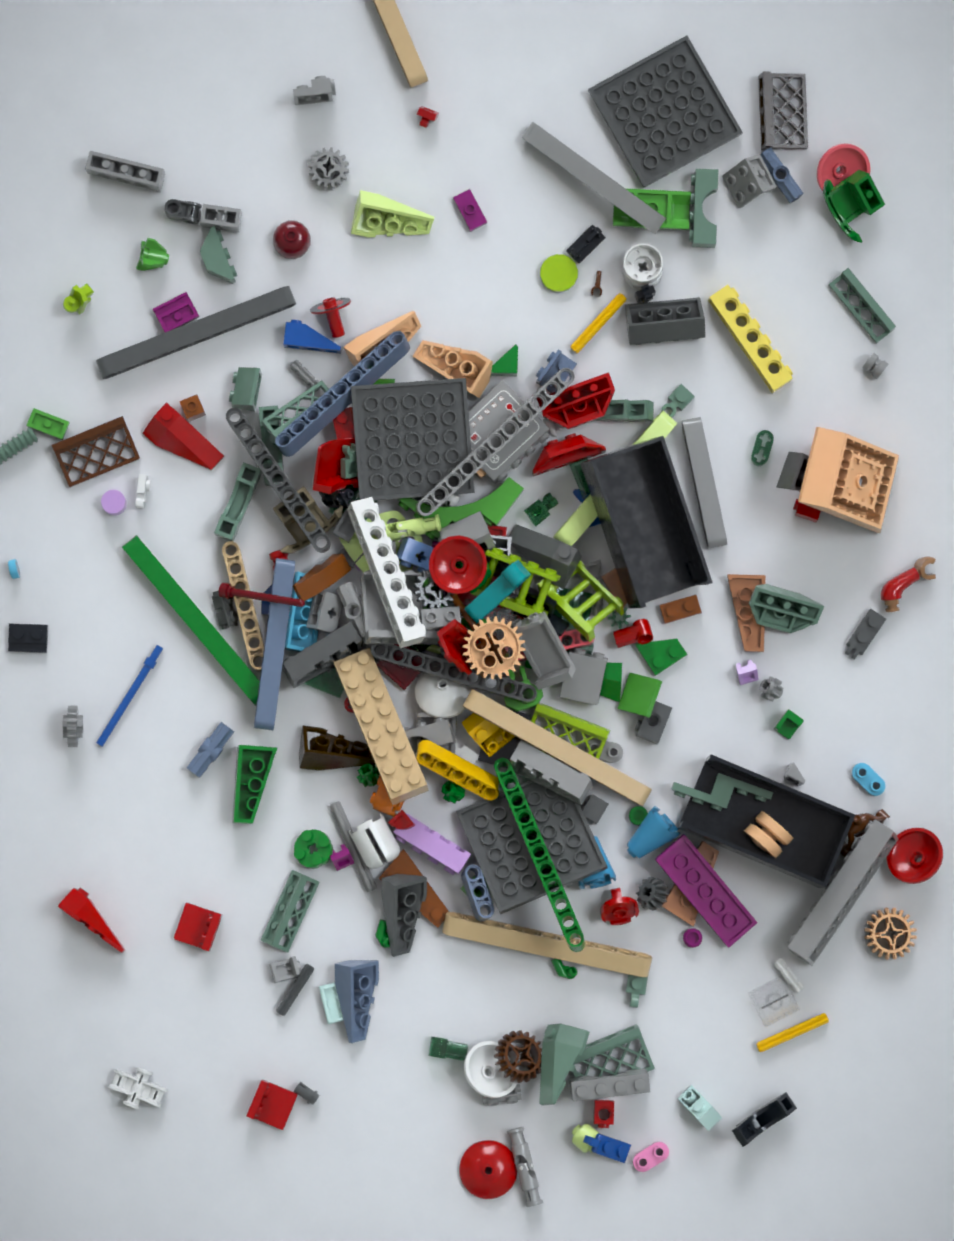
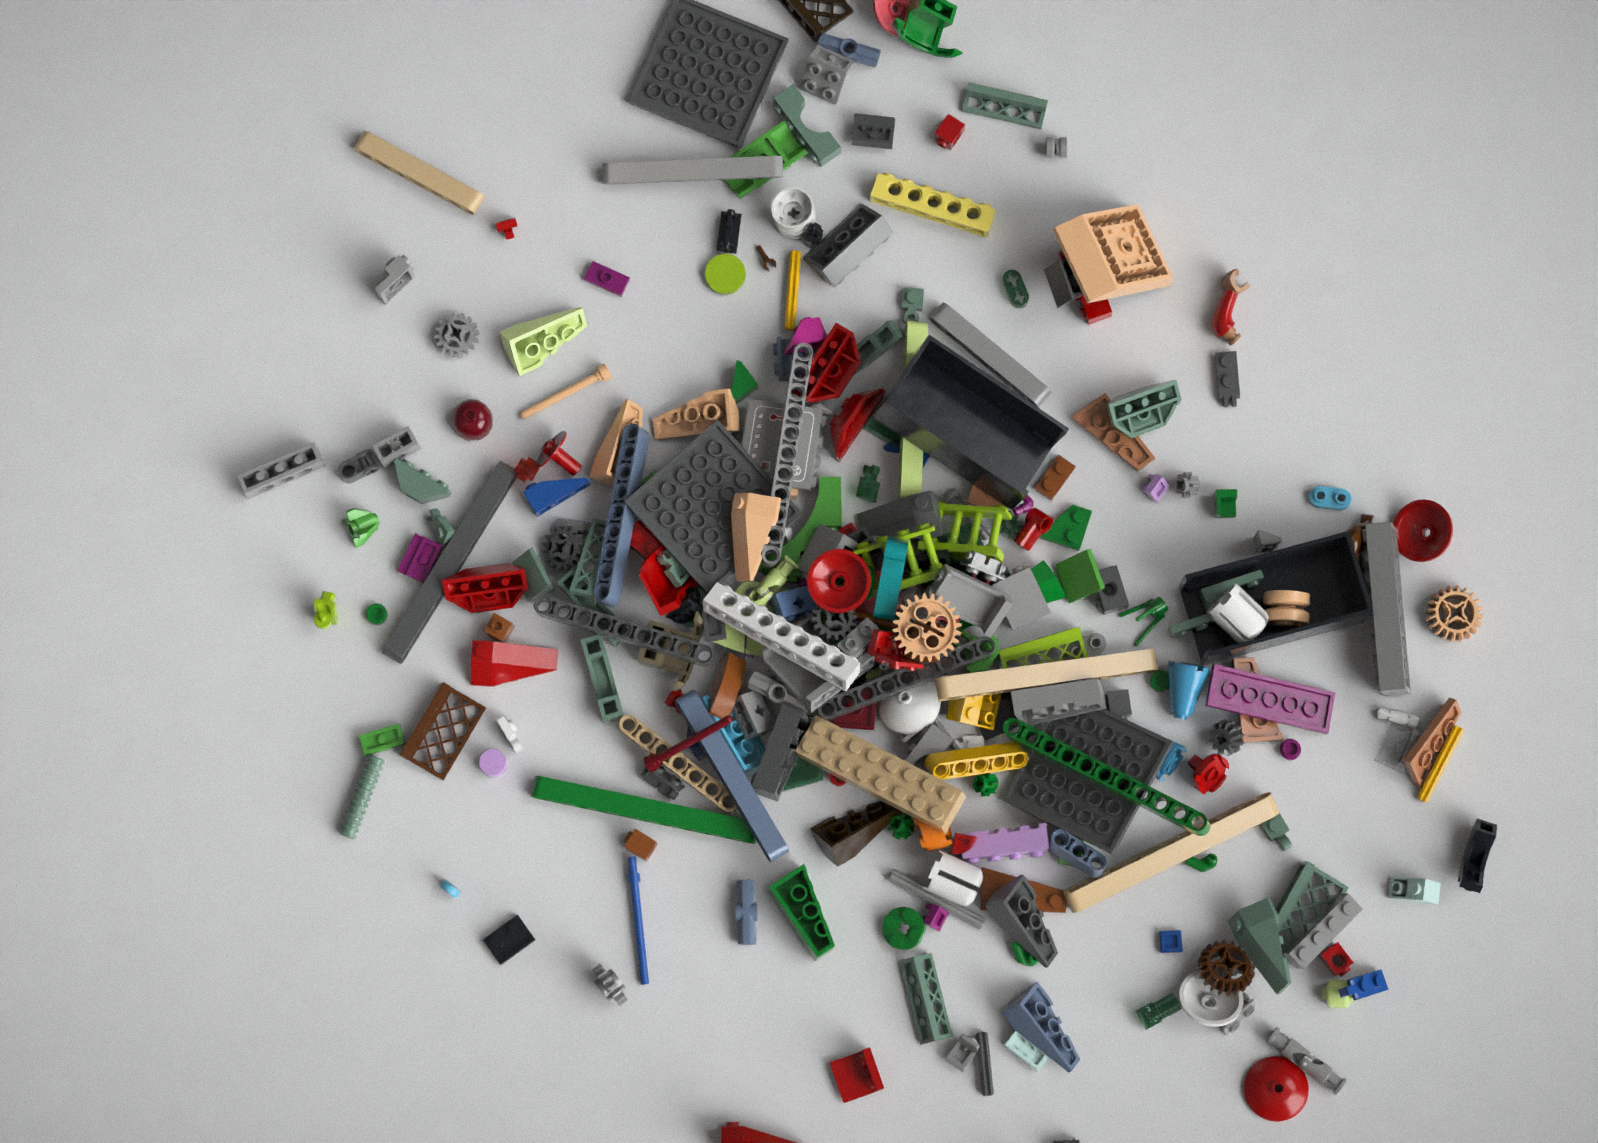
camera: 30 degrees left, 5 degrees down
(114, 329) = (376, 614): none -> green tile
(172, 642) = (640, 844): none -> dark orange brick
(206, 370) = (486, 587): none -> red wedge
(207, 304) = (442, 528): none -> sand green plate
(284, 385) = (562, 547): none -> dark grey gear
(301, 307) = (526, 469): none -> clear red gear
(410, 277) = (600, 374): none -> light nougat piece
(429, 473) = (751, 522): none -> light nougat wedge
(496, 1007) = (1170, 941): none -> blue tile
(568, 628) = (991, 569): none -> light grey hinge
(582, 364) = (808, 331): none -> dark pink slope
(640, 614) = (1024, 507): none -> magenta animal
(651, 1157) = (1405, 965): bright pink plate -> none
(676, 760) = (1155, 608): none -> green plant
(728, 813) = (1239, 614): none -> white cylinder
(750, 250) = (873, 131): none -> dark grey bracket
(799, 1011) = (1431, 741): none -> nougat wing
(805, 294) = (949, 132): none -> red brick

